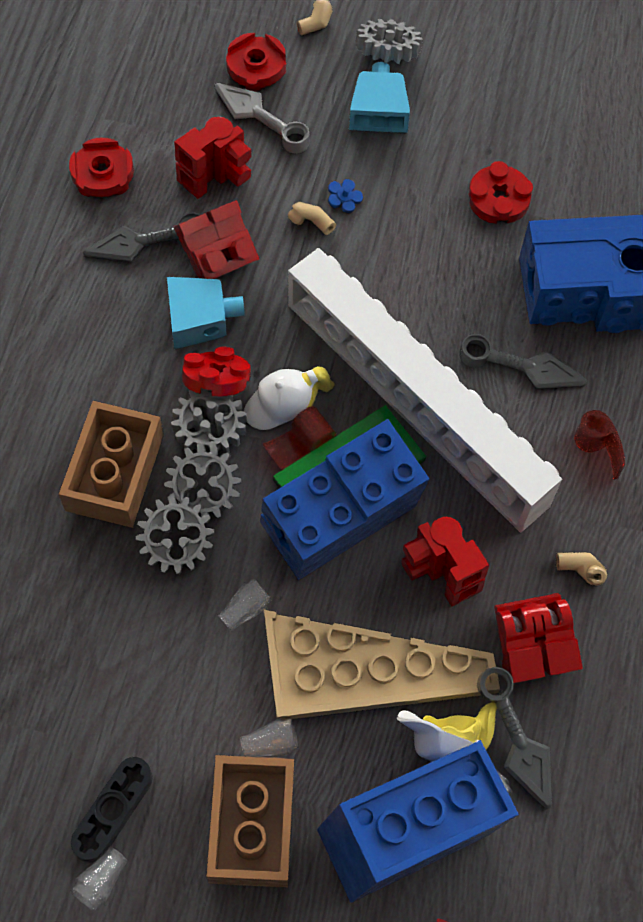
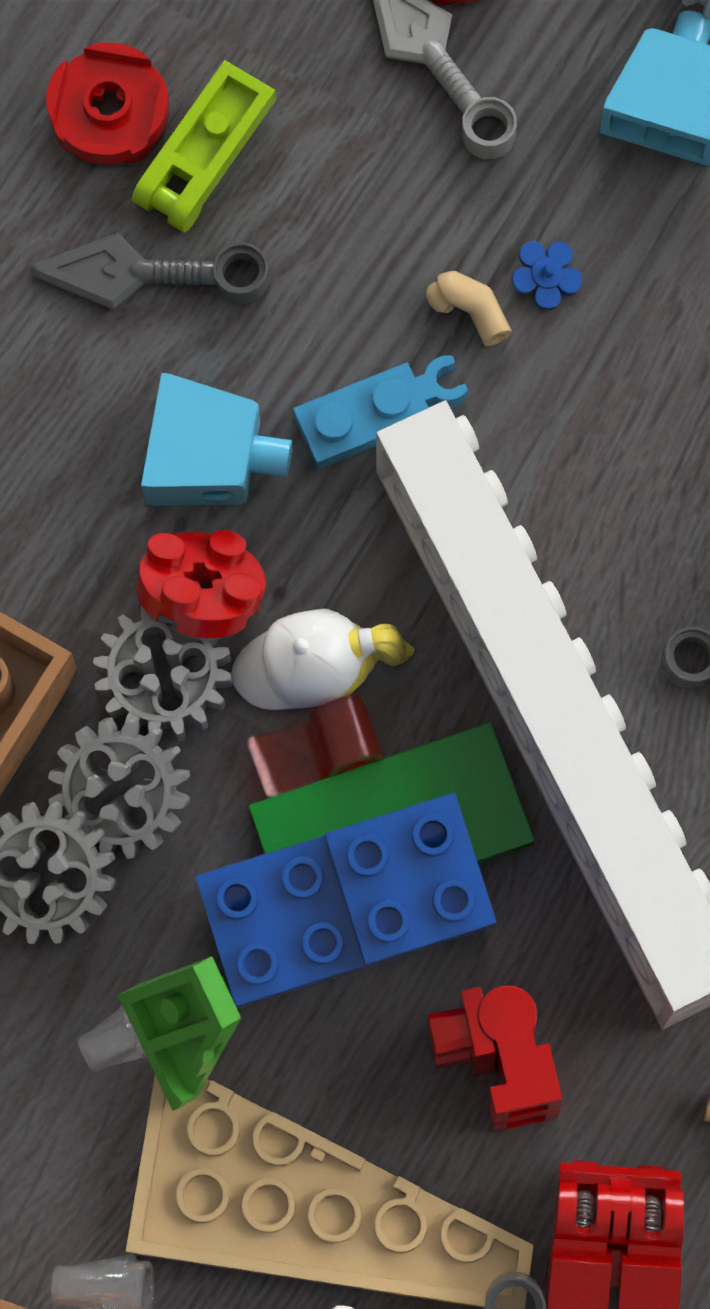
camera: 20 degrees right, 10 degrees up
(154, 177) = (204, 145): none -> lime plate
(212, 153) = (315, 133): red hips -> none
(214, 257) = (283, 350): red hips -> none
(272, 279) = (348, 418): none -> dark azure plate
(276, 583) = (182, 1026): none -> bright green wing

